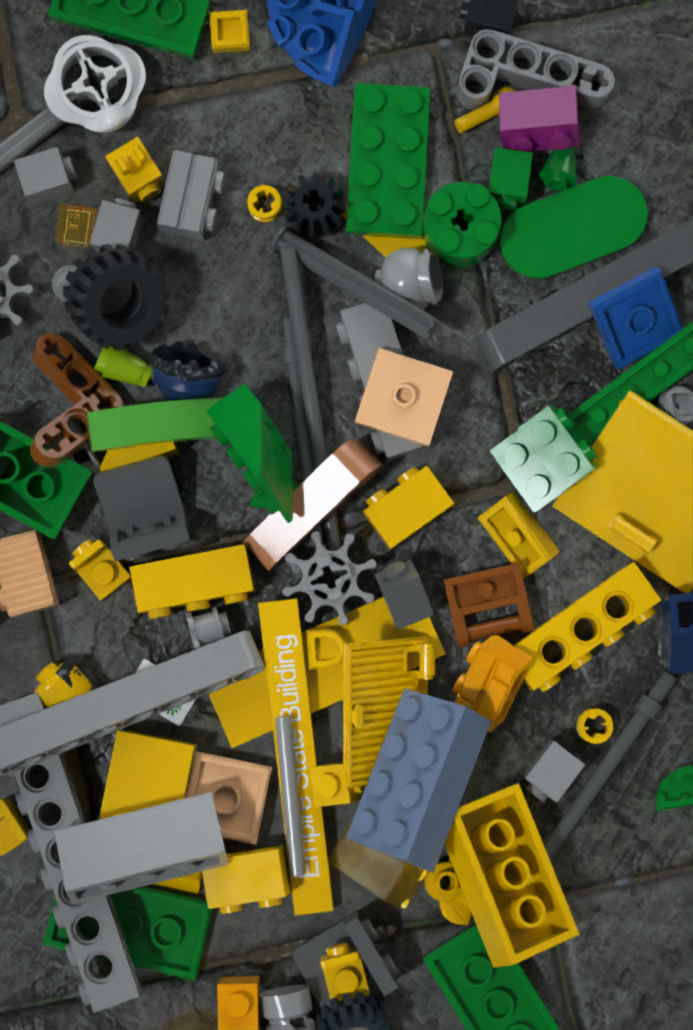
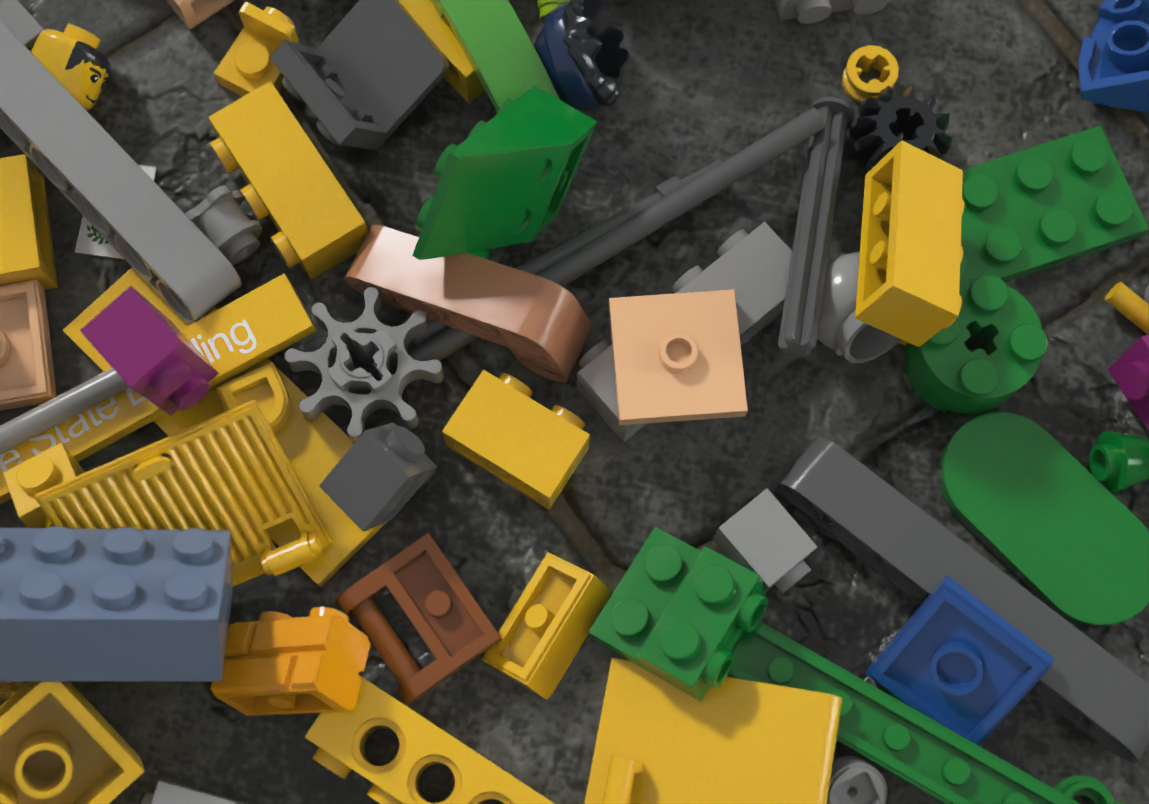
camera: 60 degrees right, 10 degrees down
(288, 693) = (150, 352): none -> magenta brick
(396, 236) = (910, 245): none -> yellow brick
(509, 177) = (1076, 390): green brick -> none
(526, 393) = (767, 542): none -> light grey brick

